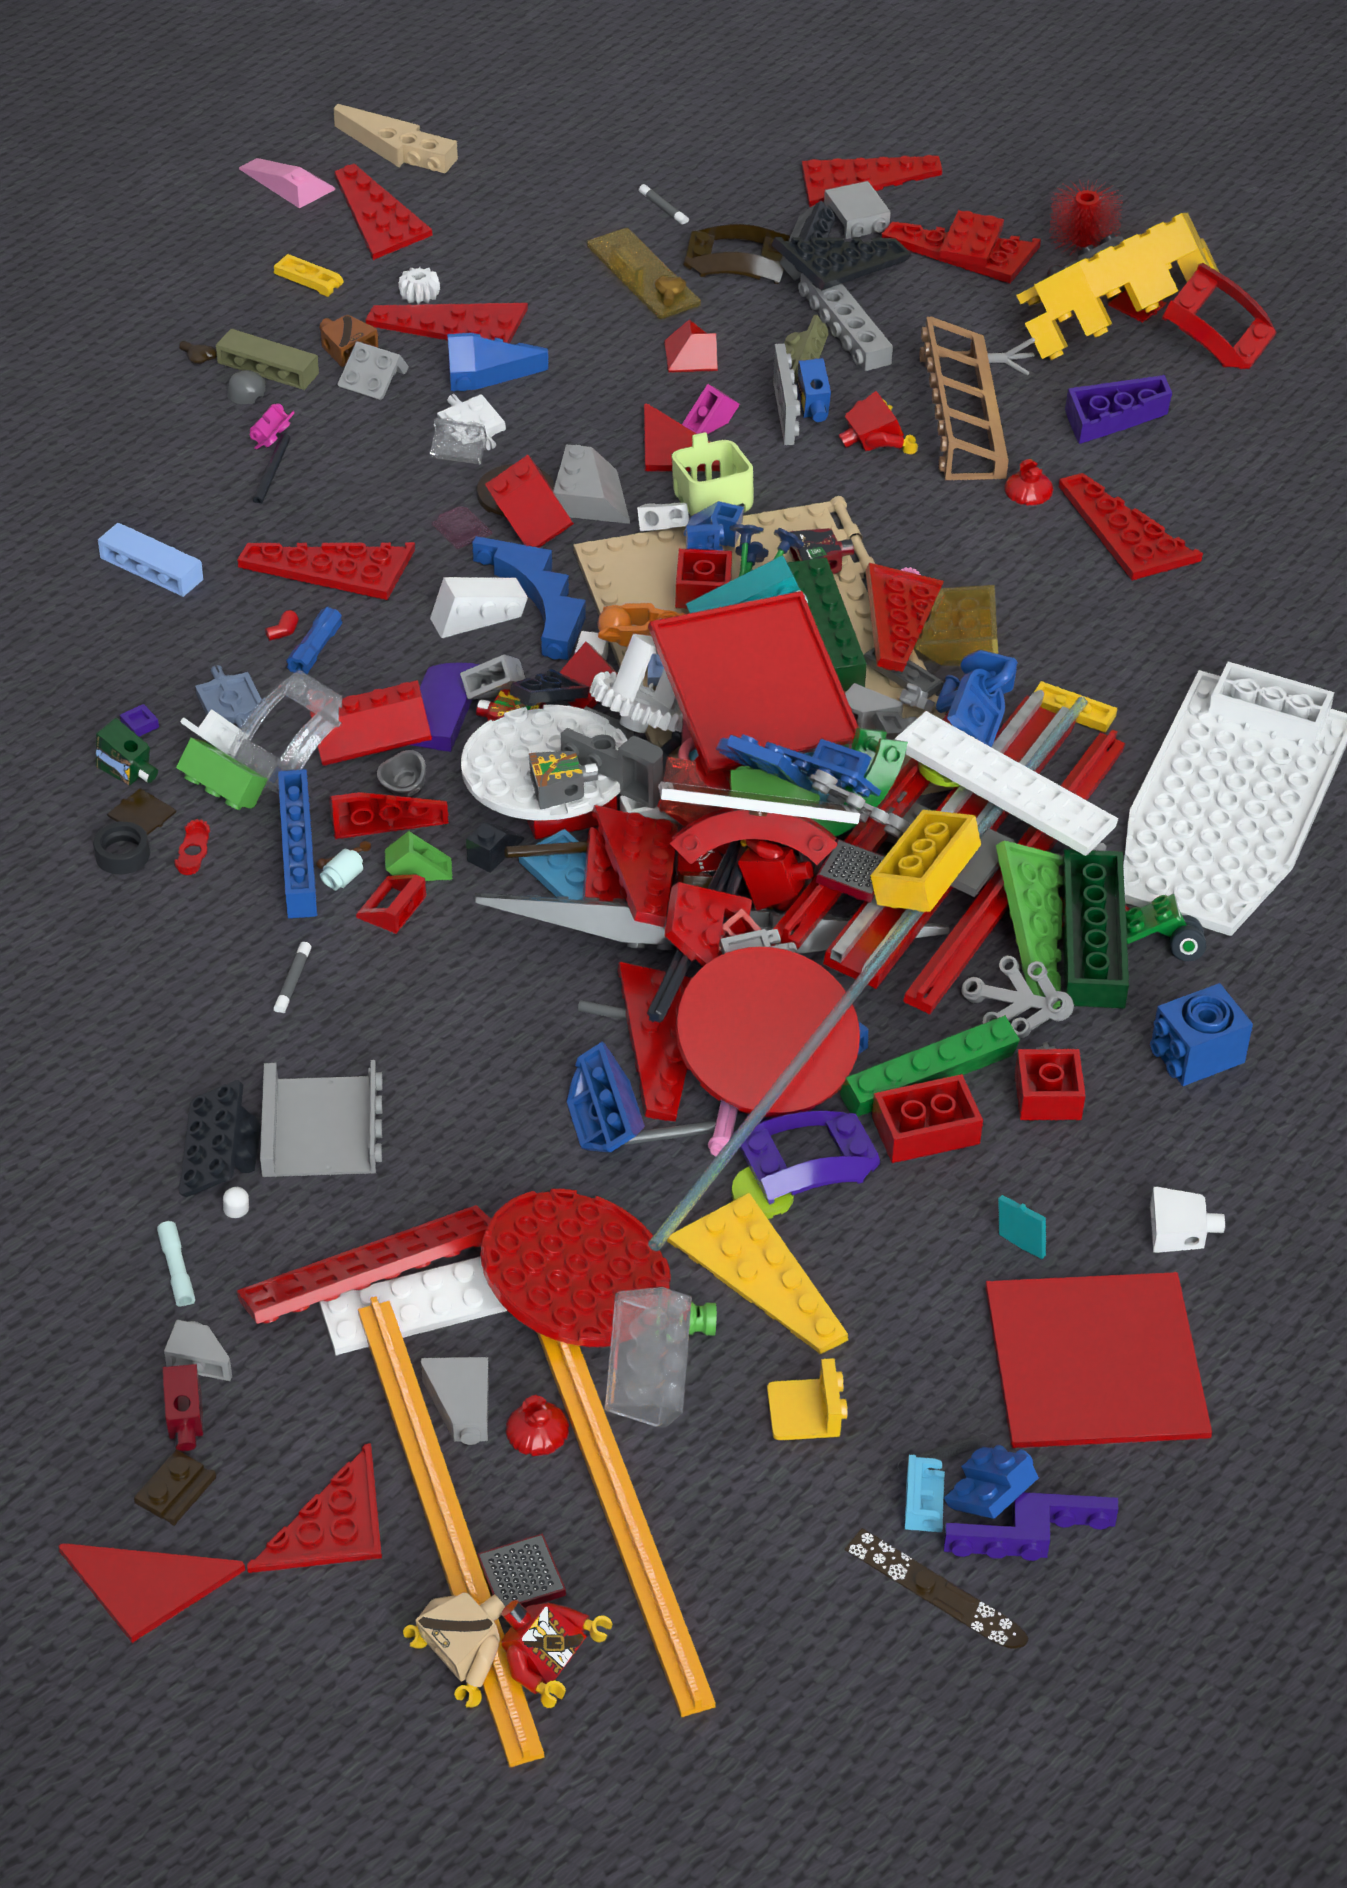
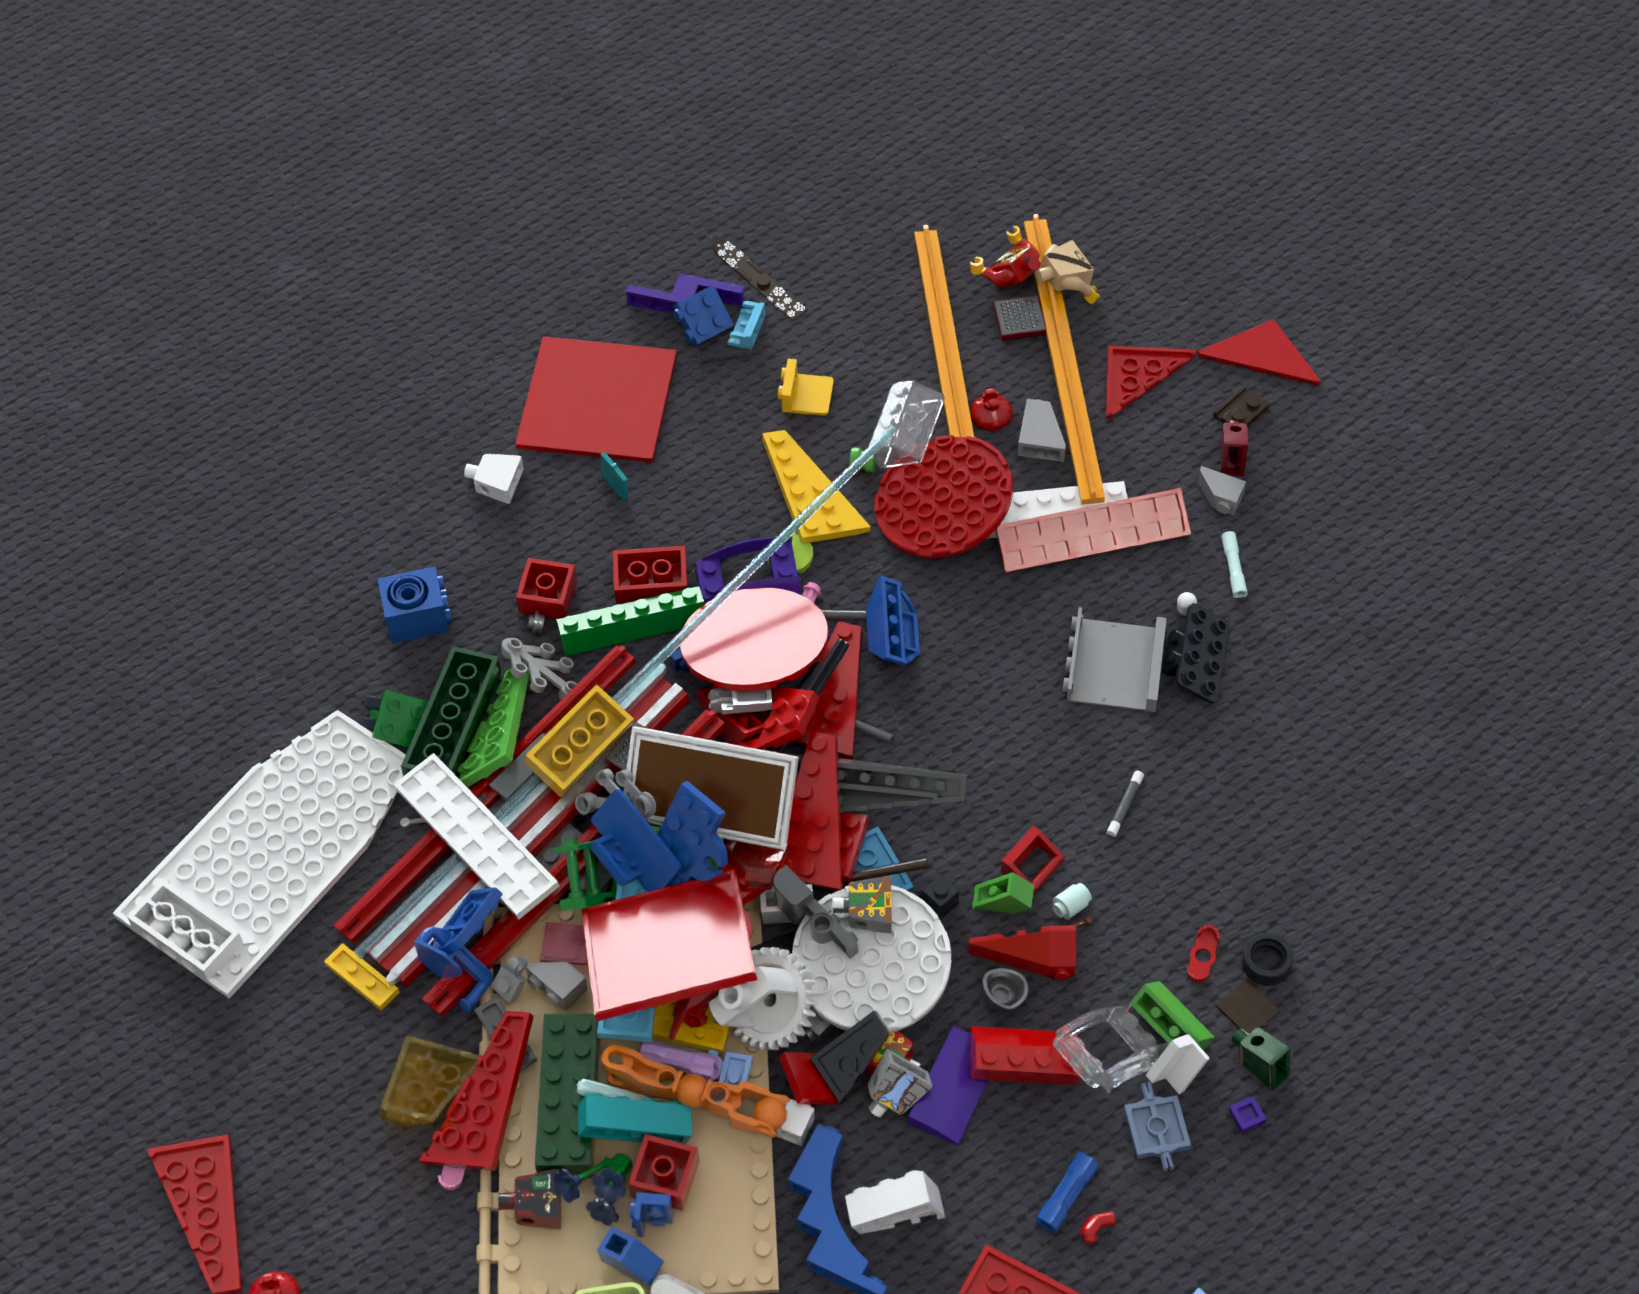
camera: 165 degrees left, 10 degrees up
(297, 844) = (1109, 926): blue brick -> none
(891, 723) = (543, 947): flat silver plate -> none

